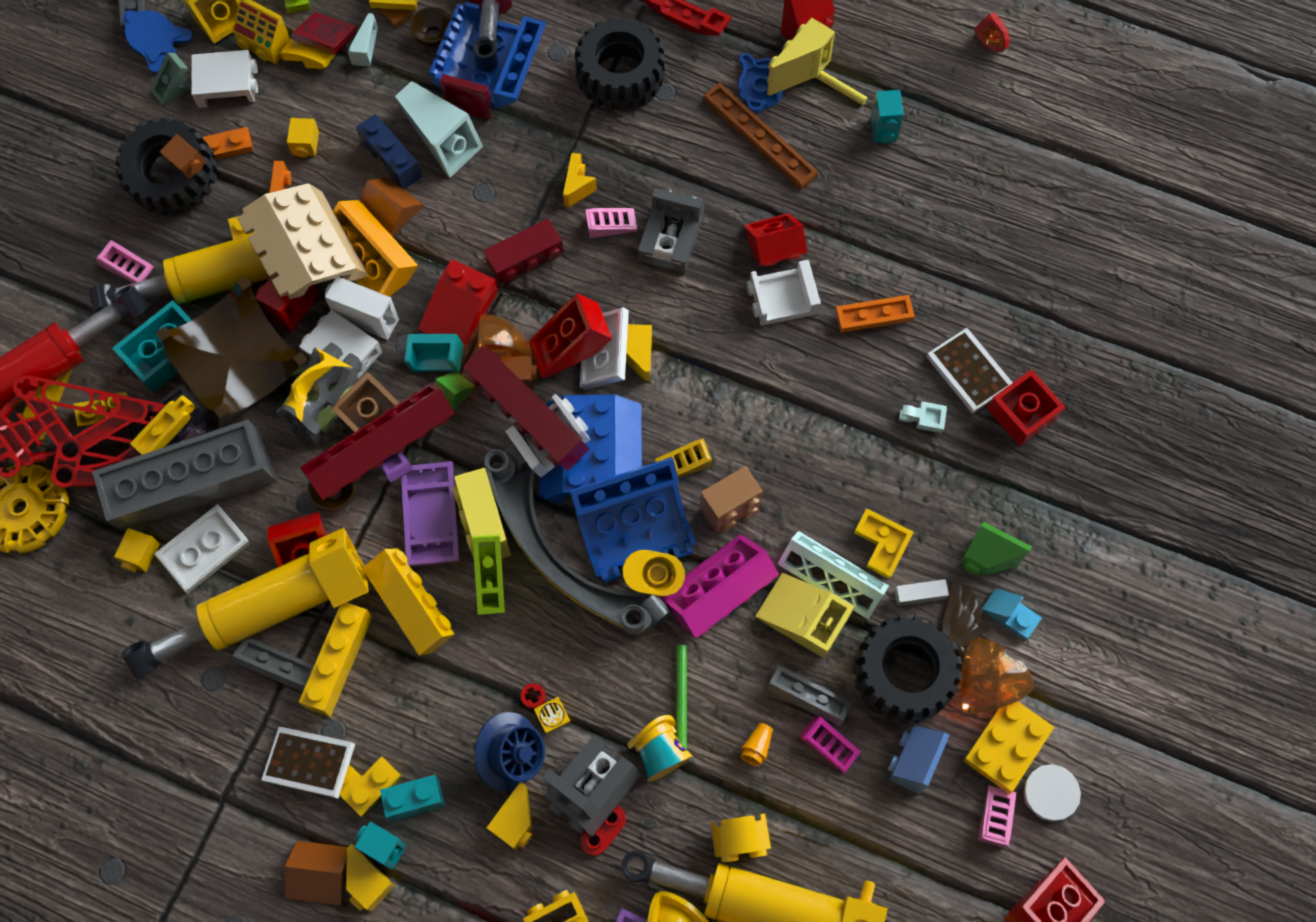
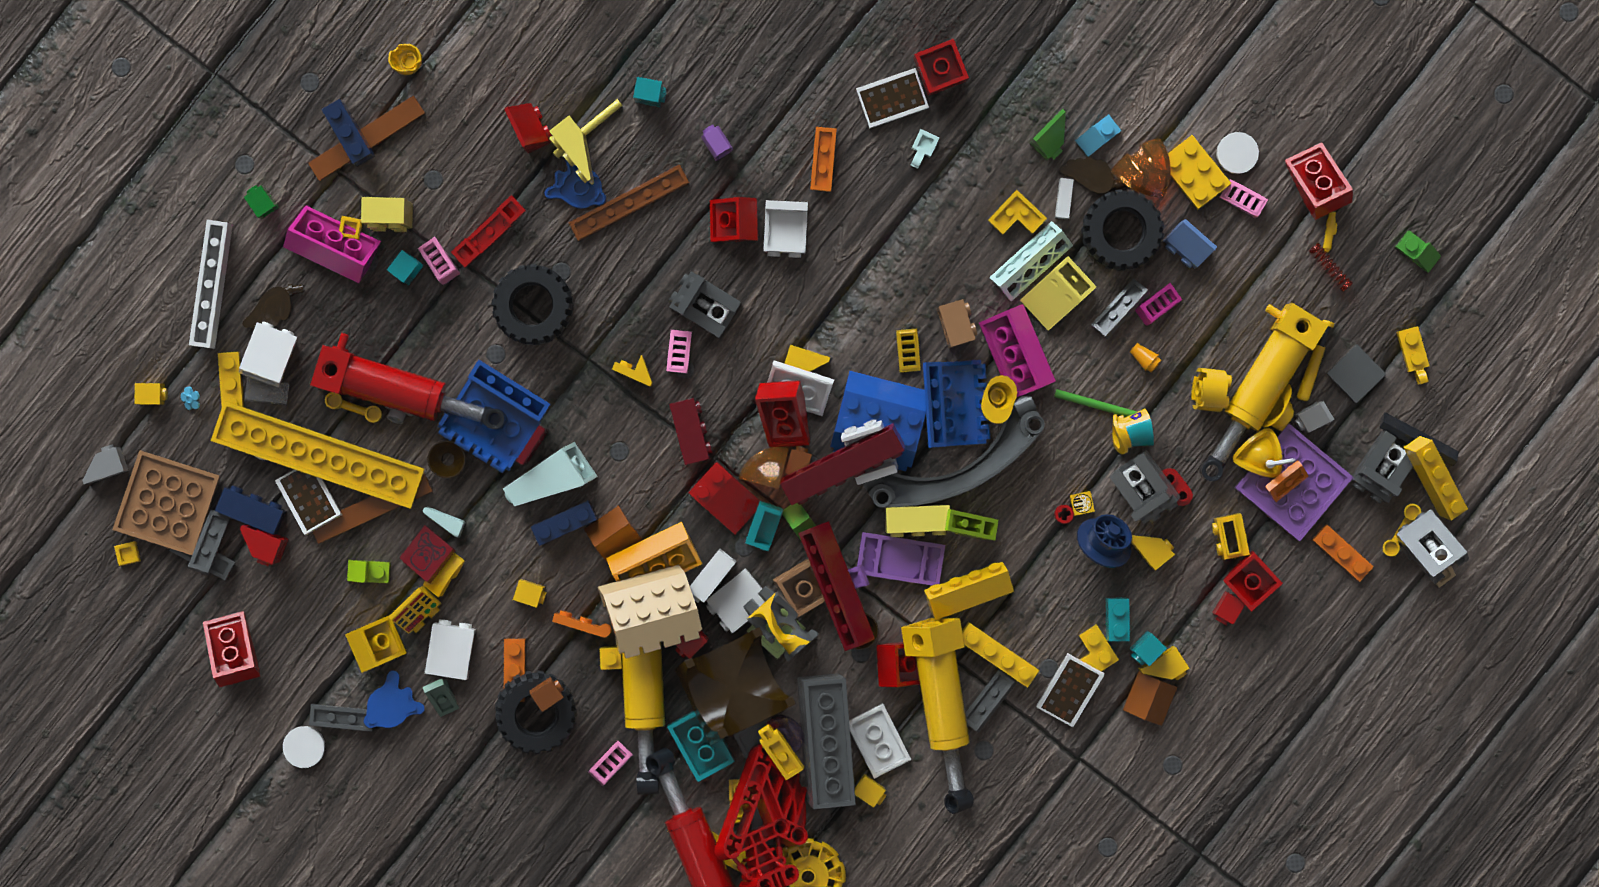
camera: 75 degrees left, 20 degrees up
(855, 195) = (716, 142): none -> medium lavender brick

